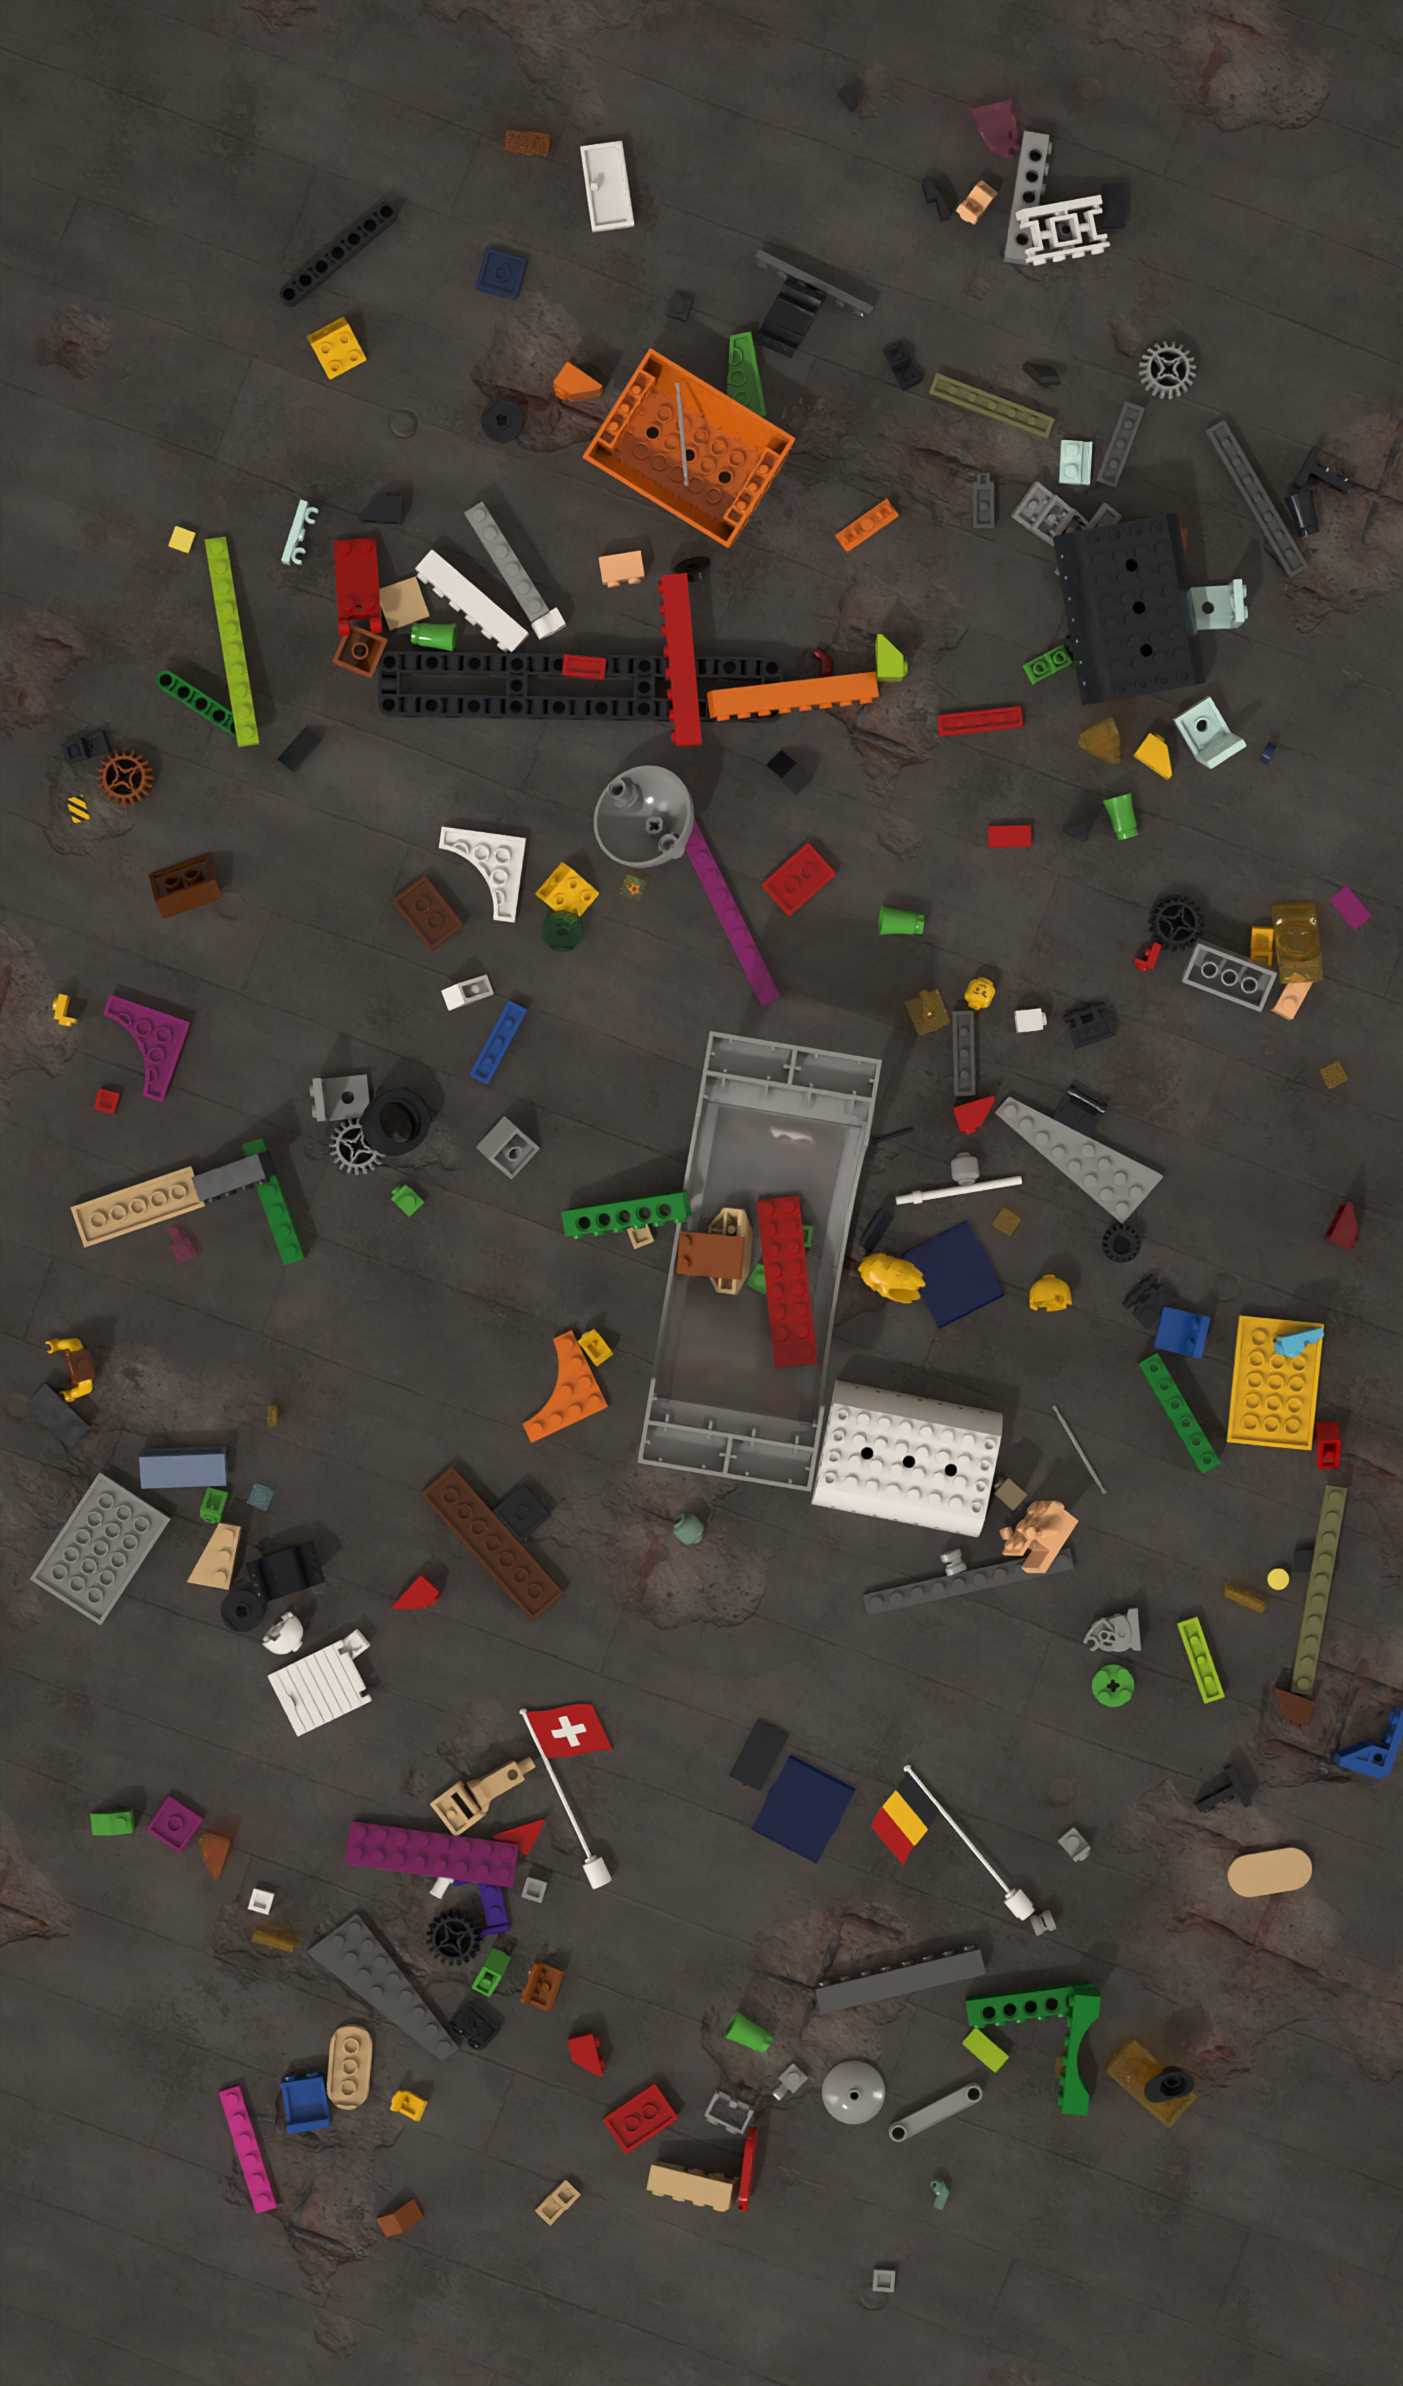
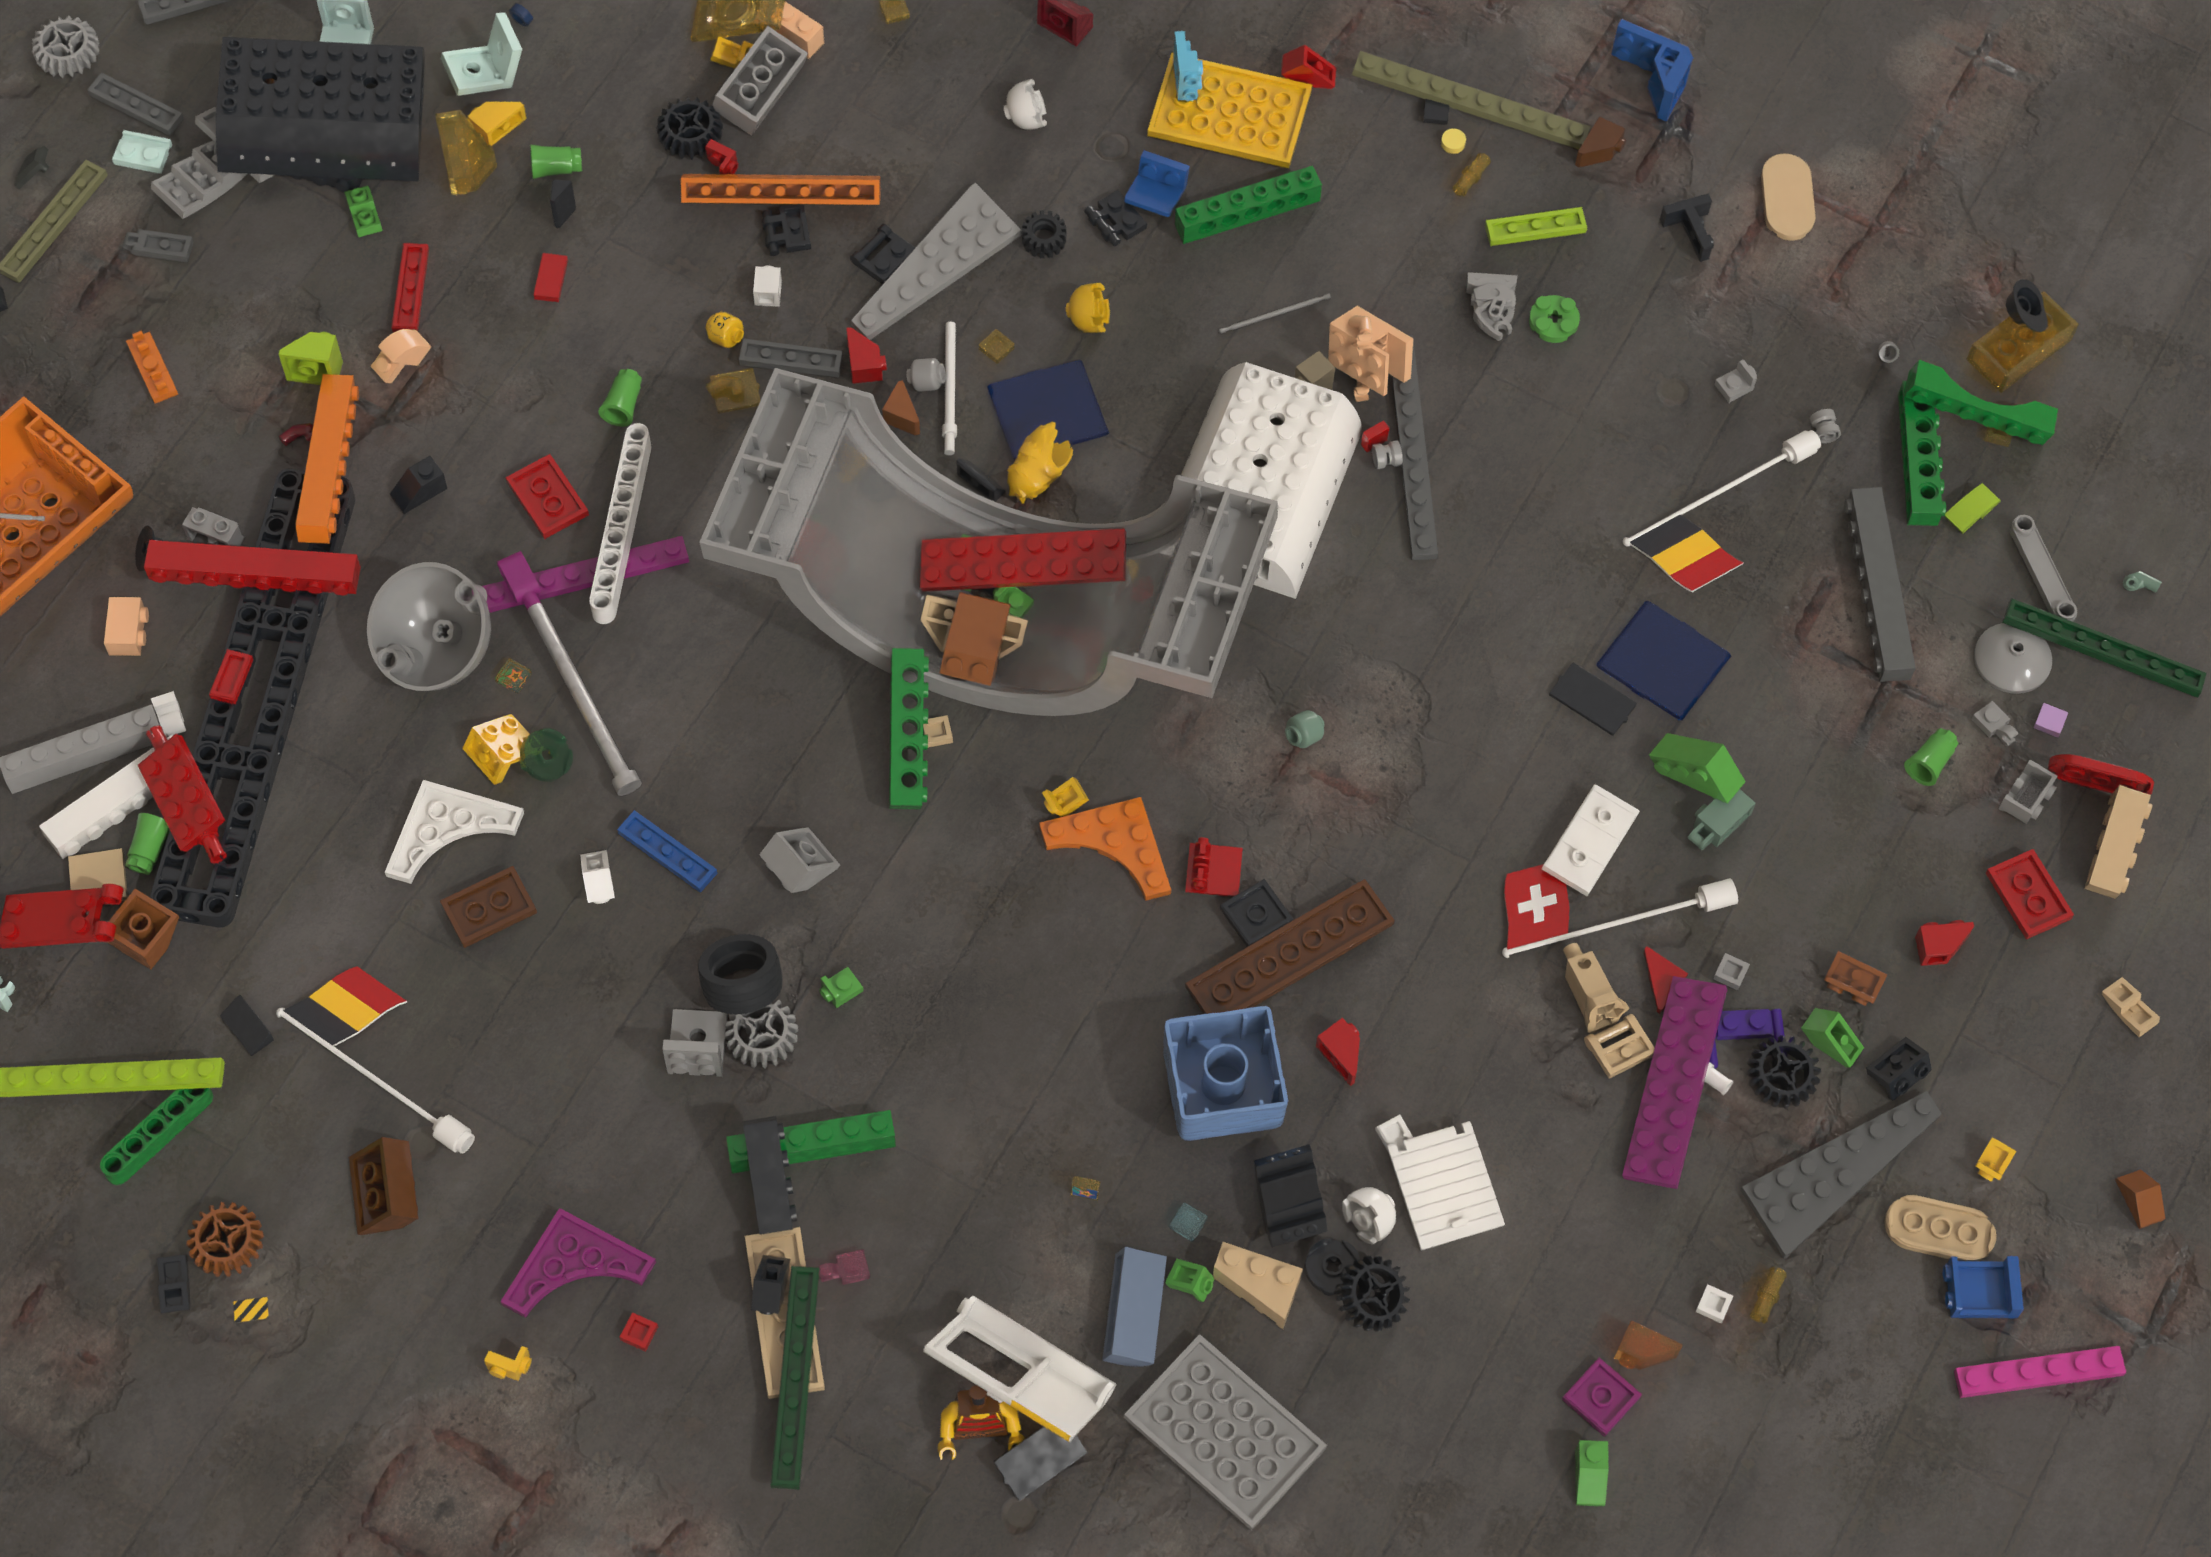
camera: 85 degrees left, 25 degrees down
(86, 1225) = (795, 1378): none -> dark green tile
(105, 1420) = (1054, 1391): none -> white piece
(152, 1193) = (770, 1285): none -> black slope
(219, 1633) = (1385, 1312): none -> black gear
(325, 821) = (344, 1010): none -> flag
(369, 1509) = (1224, 1073): none -> medium blue brick
(472, 655) = (182, 794): none -> red plate
(555, 1473) = (1213, 869): none -> red hinge
(627, 1767) = (1590, 840): none -> white container
(666, 1868) = (1720, 819): none -> sand green brick
(701, 1845) = (1698, 765): none -> bright green wedge
(703, 883) = (526, 588): none -> flat silver piece
(718, 617) = (212, 525): none -> light grey window
(788, 946) = (622, 509): none -> white beam
(800, 2126) = (2050, 720): none -> lavender tile
(870, 2165) = (2104, 647): none -> dark green tile
(909, 729) = (398, 350): none -> light nougat brick
(927, 1153) = (900, 411): none -> dark orange slope
(969, 1549) = (1375, 435): none -> red tile
(1123, 1014) = (780, 189): none -> orange brick
(1125, 1973) = (1893, 352): none -> light grey hinge
(1244, 1207) = (1025, 106): none -> white cylinder

